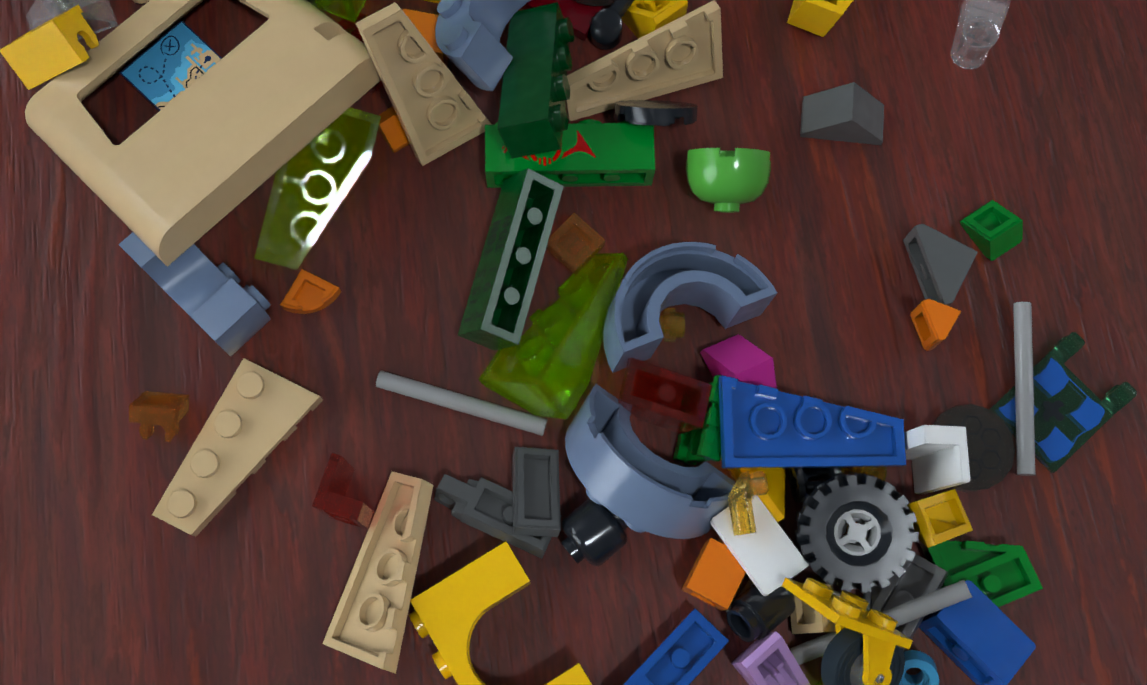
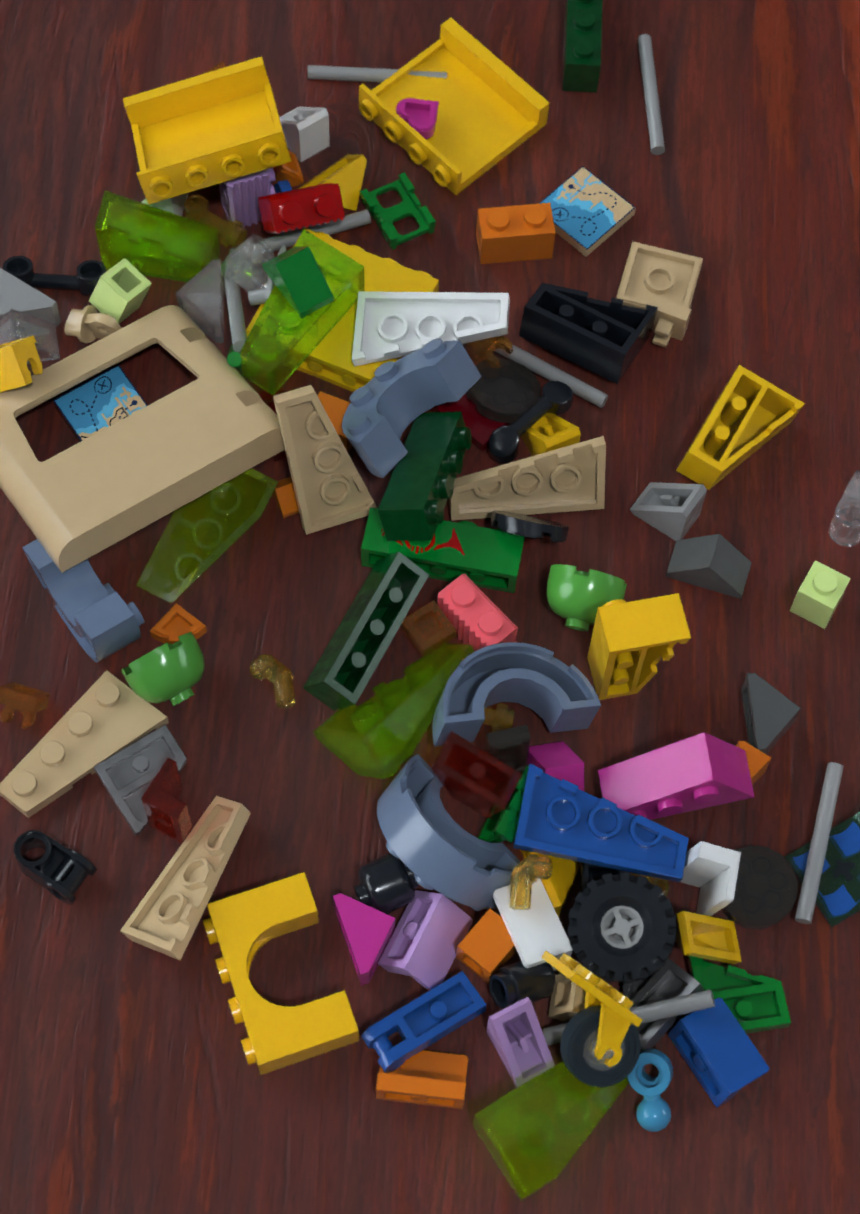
camera: 15 degrees right, 10 degrees down
(239, 593) = (58, 871): none -> black piece
(300, 463) = (133, 770): none -> flat silver wing
(309, 348) = (167, 671): none -> bright green cylinder
(428, 324) = (277, 673): none -> clear yellow arm
(461, 403) = (293, 750): light grey bar -> none
(488, 510) = (305, 850): dark grey hinge -> none
(536, 492) = (341, 838): dark grey tile -> none
(584, 591) = (364, 932): none -> dark pink slope
(622, 221) = (475, 615): none -> coral brick
(648, 581) = (426, 939): none -> lavender panel
(692, 358) = (510, 746): none -> clear smoke tile
(790, 62) = (670, 507): none -> light grey slope
(796, 215) = (631, 641): none -> yellow wedge
(871, 356) = (679, 778): none -> dark pink wedge
(964, 125) = (820, 594): none -> yellowish green brick
(993, 229) = (829, 696): green slope -> none

